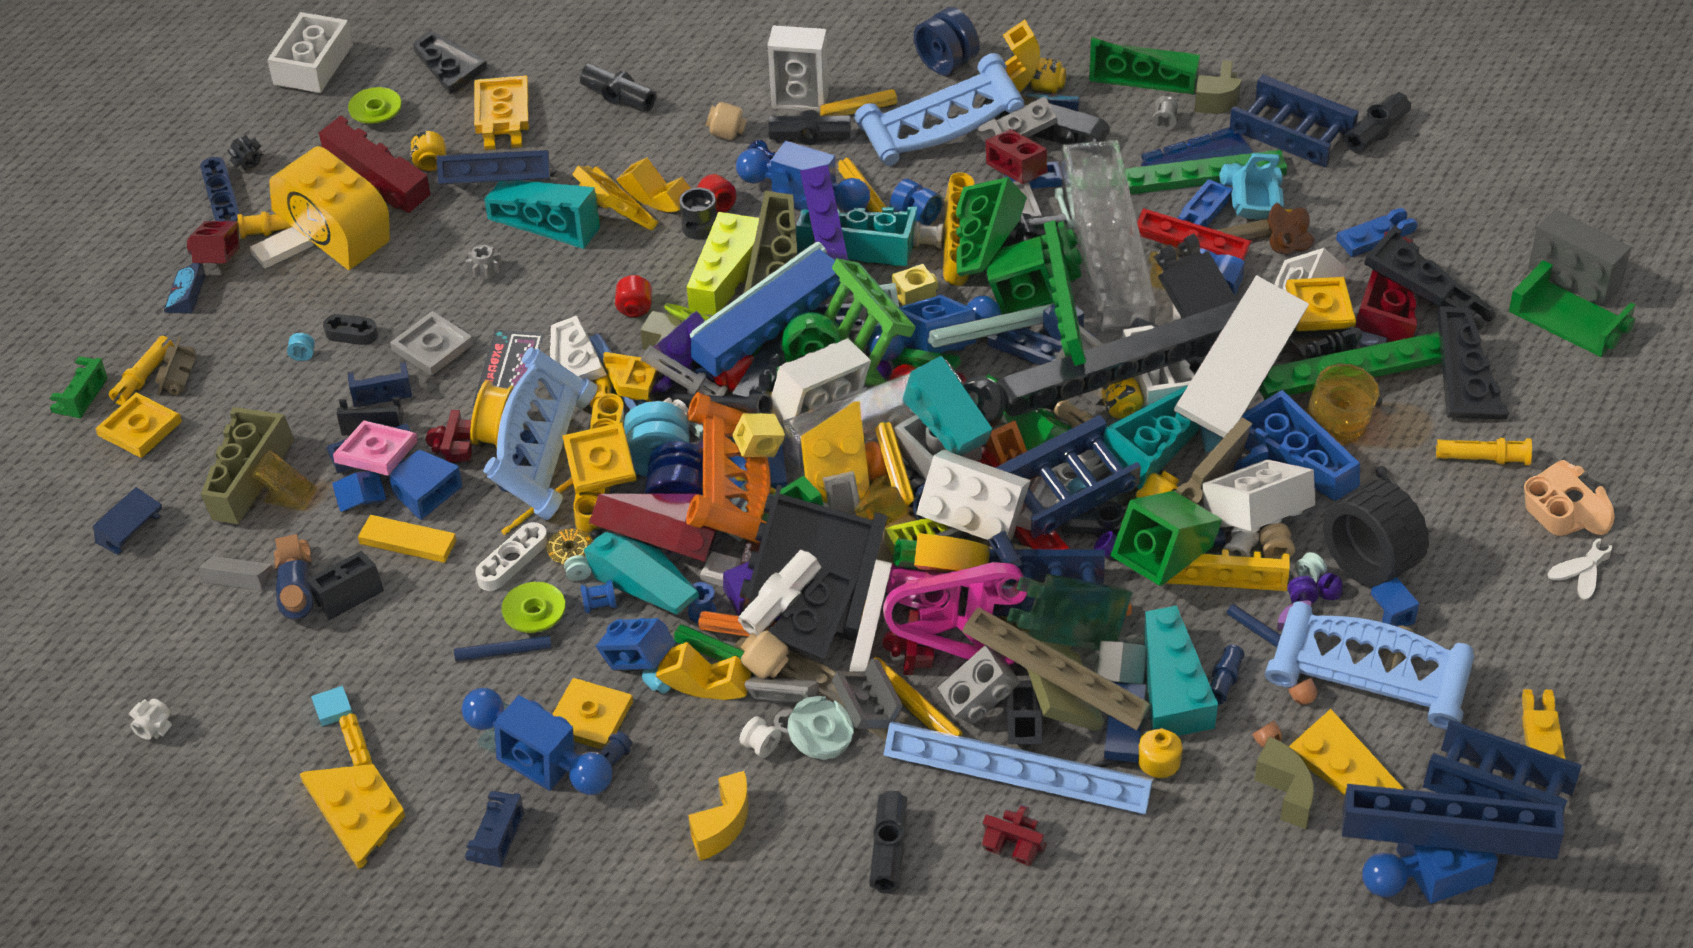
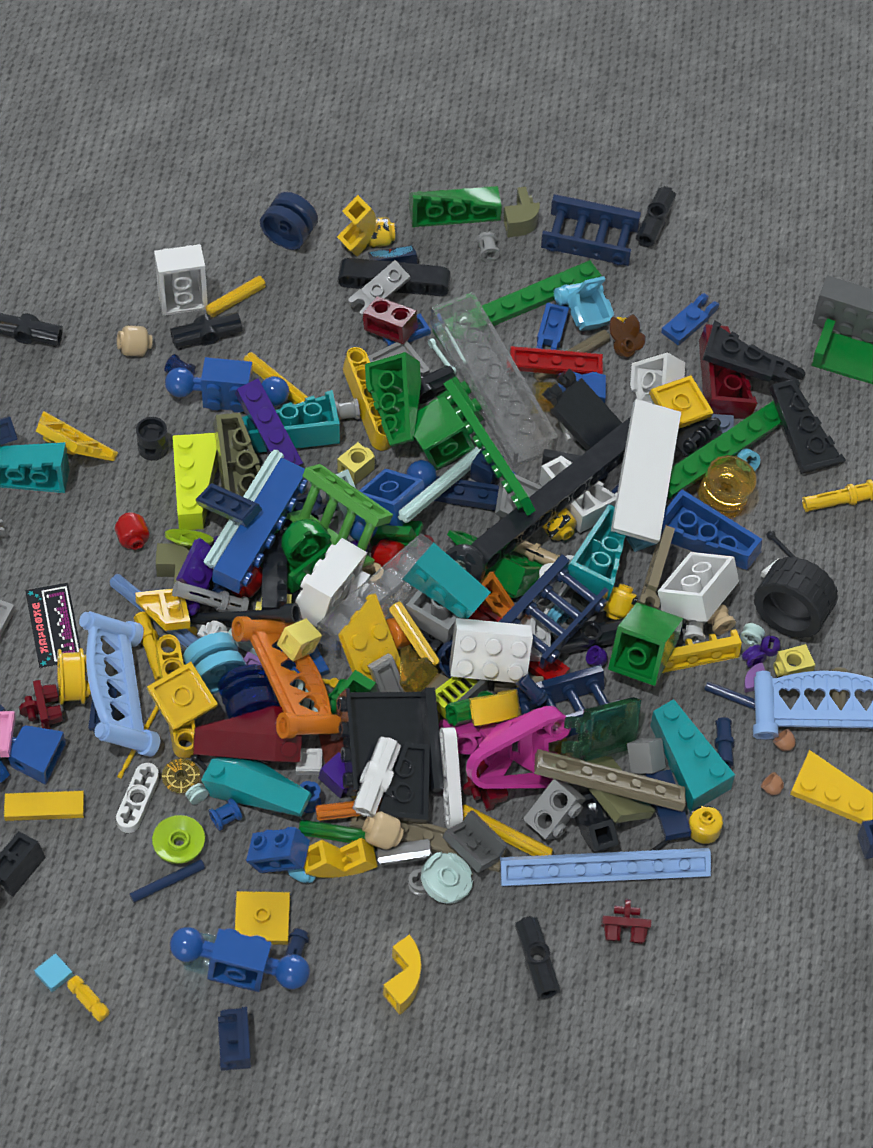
camera: 25 degrees left, 10 degrees up
(355, 806) = (114, 1053): yellow wing -> none
(574, 350) = (105, 596): white wing -> none
(649, 187) = (96, 421): yellow brick -> none
(723, 190) = (158, 408): red head -> none
(740, 282) = (228, 504): none -> dark blue tile
(760, 736) = (404, 899): white wheel -> none
(912, 194) = (319, 378): blue wheel -> none
(991, 83) = (344, 255): light blue piece -> none
(1224, 144) = (526, 273): clear blue windscreen -> none
(1258, 454) = (678, 553): blue tile -> none
(1286, 771) = (798, 811): olive brick -> none
(1350, 603) = (798, 656): none -> light yellow brick
(1394, 385) = (755, 458): none -> medium azure bush
(1397, 603) = (826, 648): blue panel -> none

